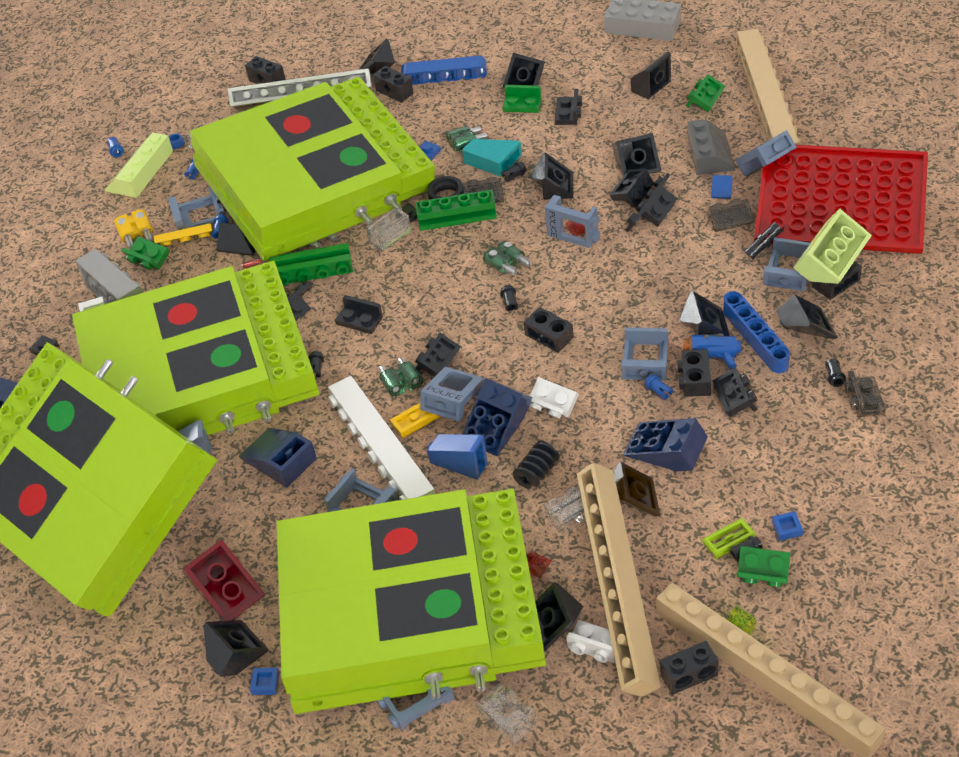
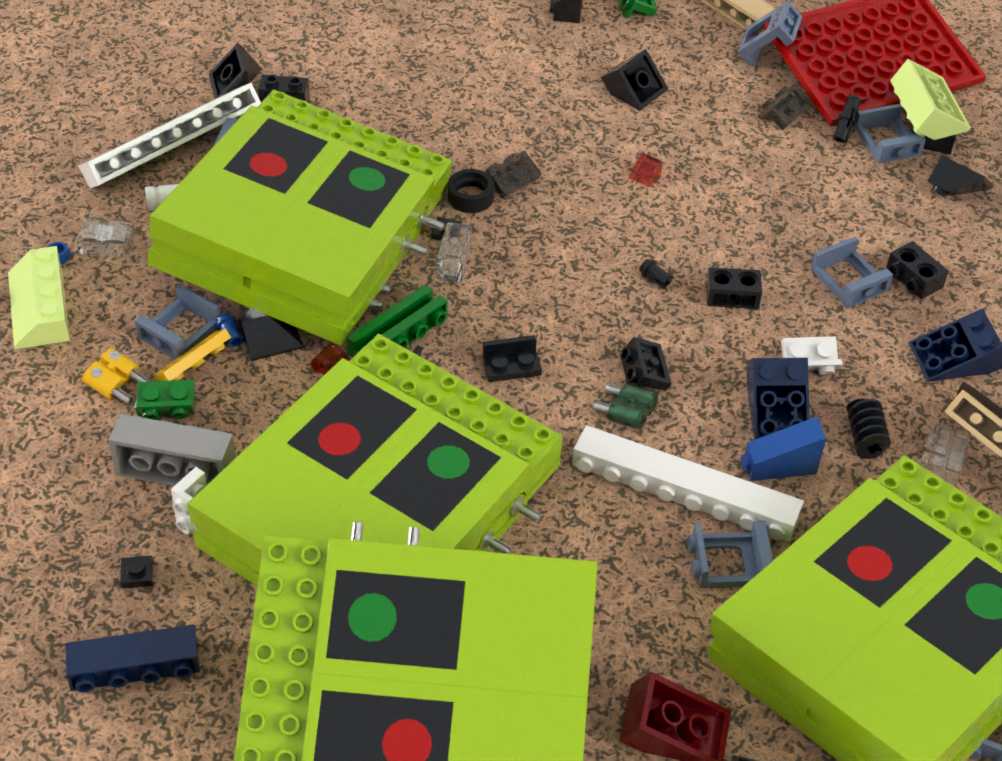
camera: 45 degrees left, 0 degrees up
(191, 170) = (119, 271): blue pin -> none
(264, 71) = (102, 131): black brick -> none
(280, 455) = (592, 538): dark blue slope -> none
(412, 420) = (696, 429): yellow plate -> none
(445, 69) = (330, 58): blue beam -> none
(447, 401) = (714, 395): sand blue window -> none
(456, 210) = (505, 203): green brick -> none
(462, 136) = (429, 125): clear green piece -> none
(492, 155) = (479, 133): teal slope -> none
(505, 256) = (607, 233): clear green piece -> none
(514, 171) = (522, 139): black pin -> none
(522, 98) = (449, 63): green bracket -> none
(523, 71) = (430, 36): black slope -> none
(553, 178) = (574, 135): black slope -> none
(554, 221) = (632, 166): sand blue window -> none
(568, 109) = (511, 57): black bracket -> none
(633, 186) = (662, 112): black bracket -> none
(655, 384) = (893, 299): blue pin -> none
(656, 206) = (700, 123): black bracket -> none
(703, 316) = (871, 218): black slope -> none
(709, 148) = (694, 51): dark grey slope -> none
(718, 346) = (901, 234): blue piece -> none
(721, 186) = (747, 83): blue slope -> none
(734, 392) = (969, 273): black bracket -> none
(756, 332) = (927, 208): blue beam -> none

